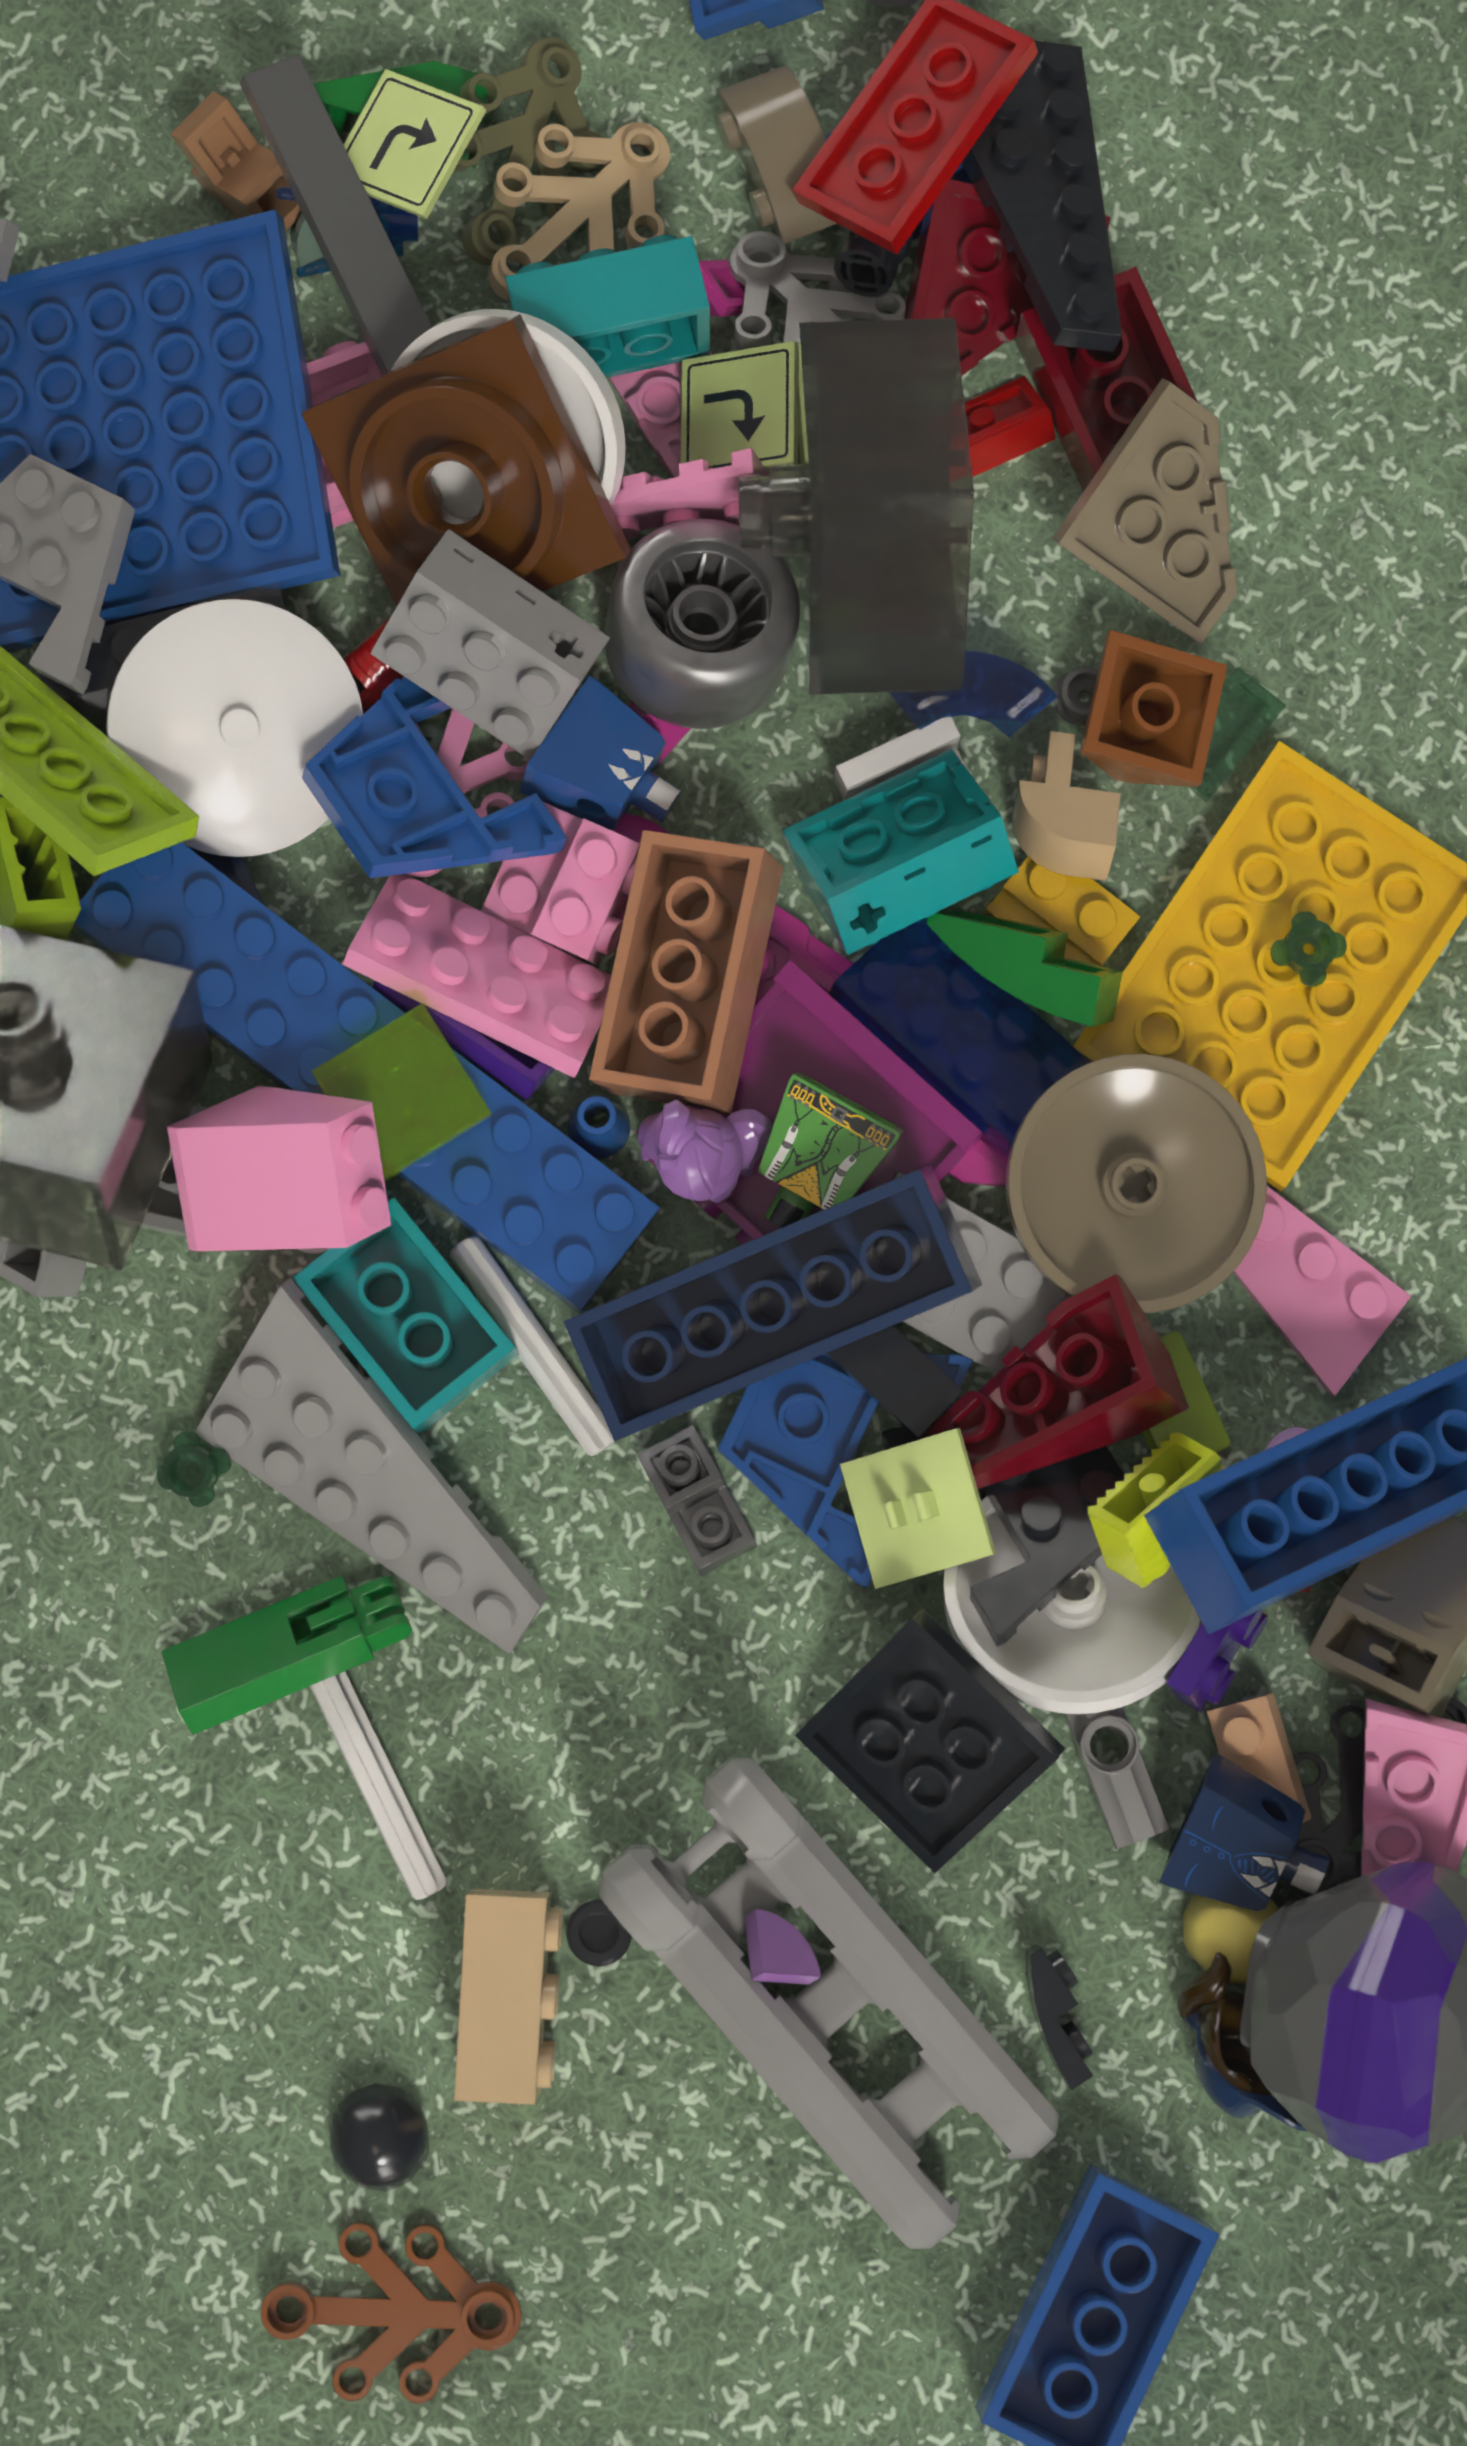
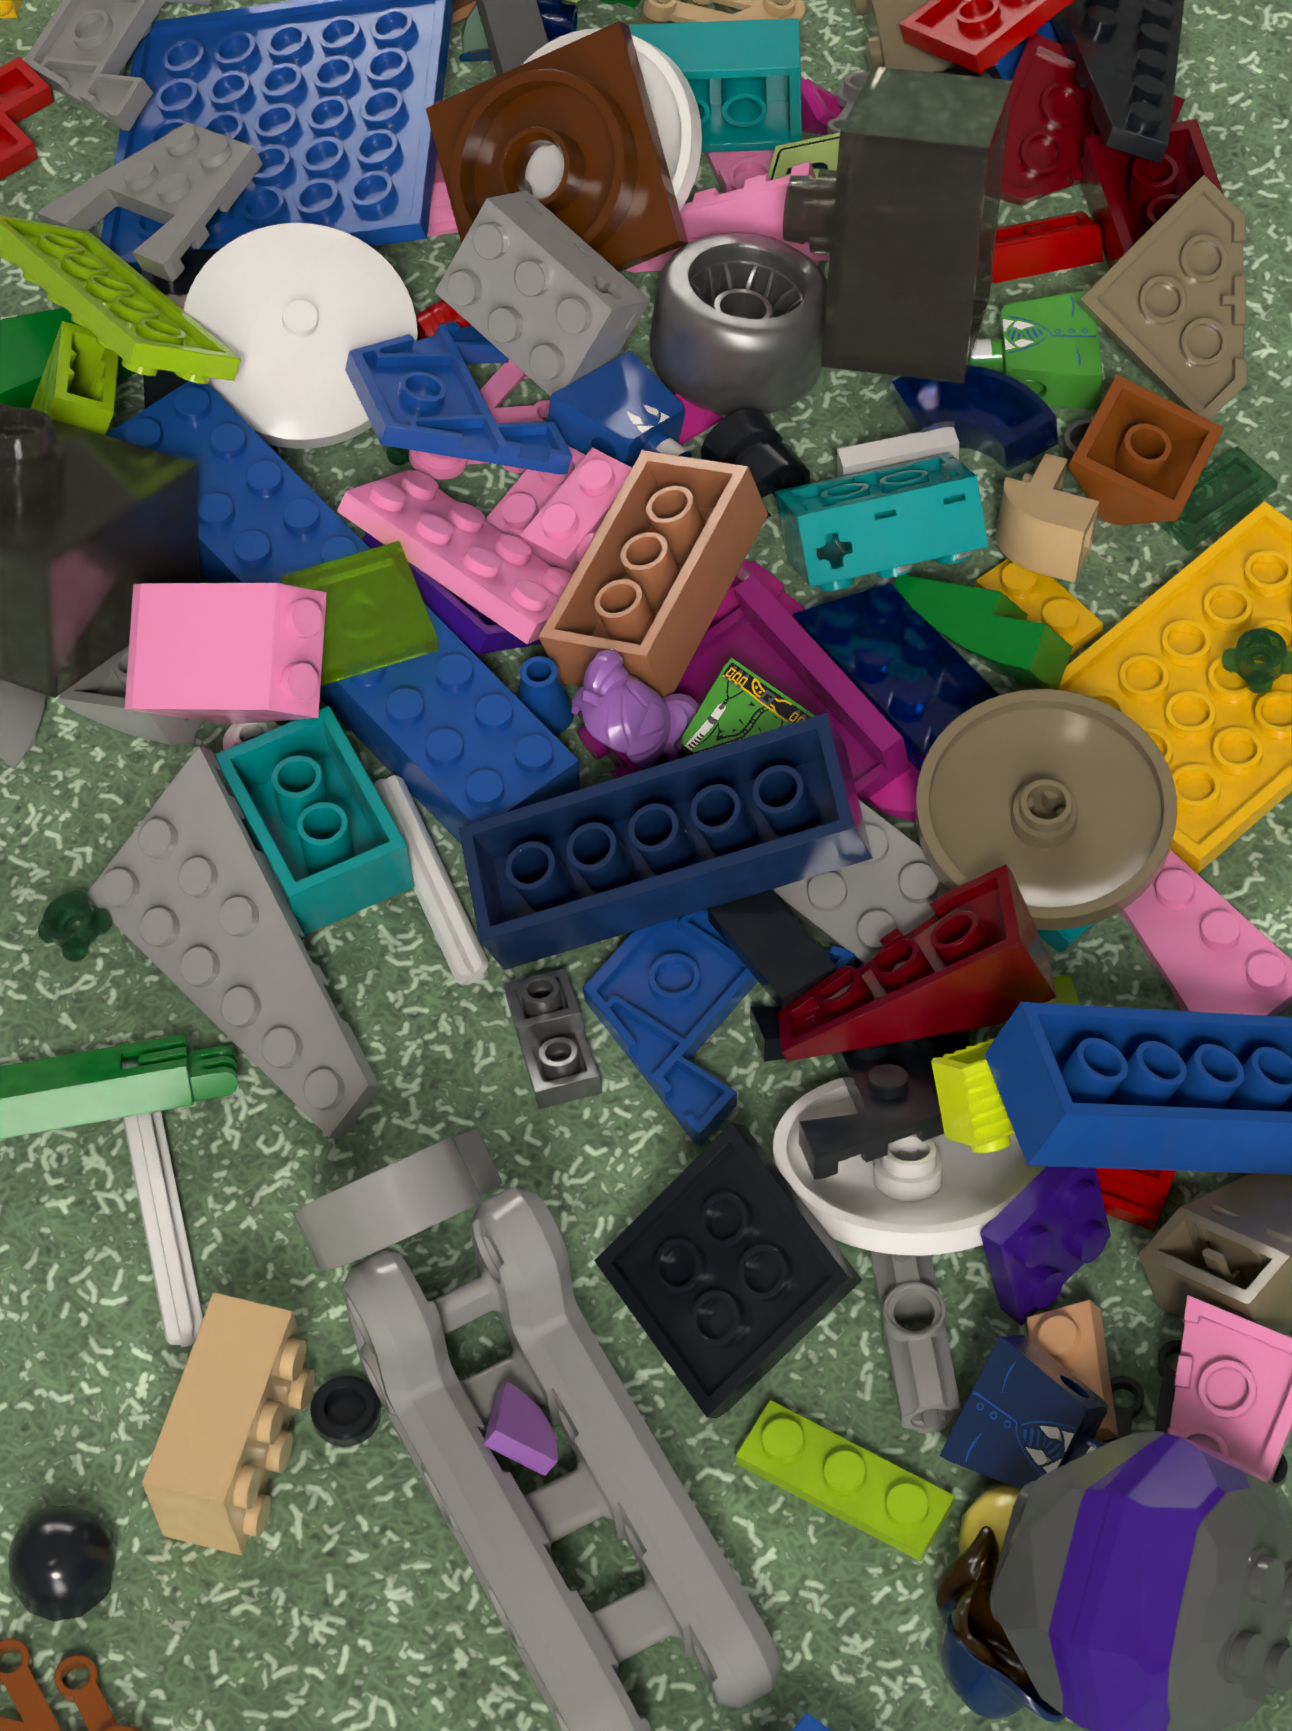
camera: 20 degrees right, 25 degrees down
(611, 1786) = (398, 1200): none -> light grey animal
(748, 788) = (752, 441): none -> black wheel
(917, 1508) = (766, 1058): yellowish green piece -> none
(1027, 585) = (1049, 349): none -> bright green torso
(1050, 1998) = (802, 1560): black slope -> none
(1072, 1906) = (845, 1480): none -> lime plate

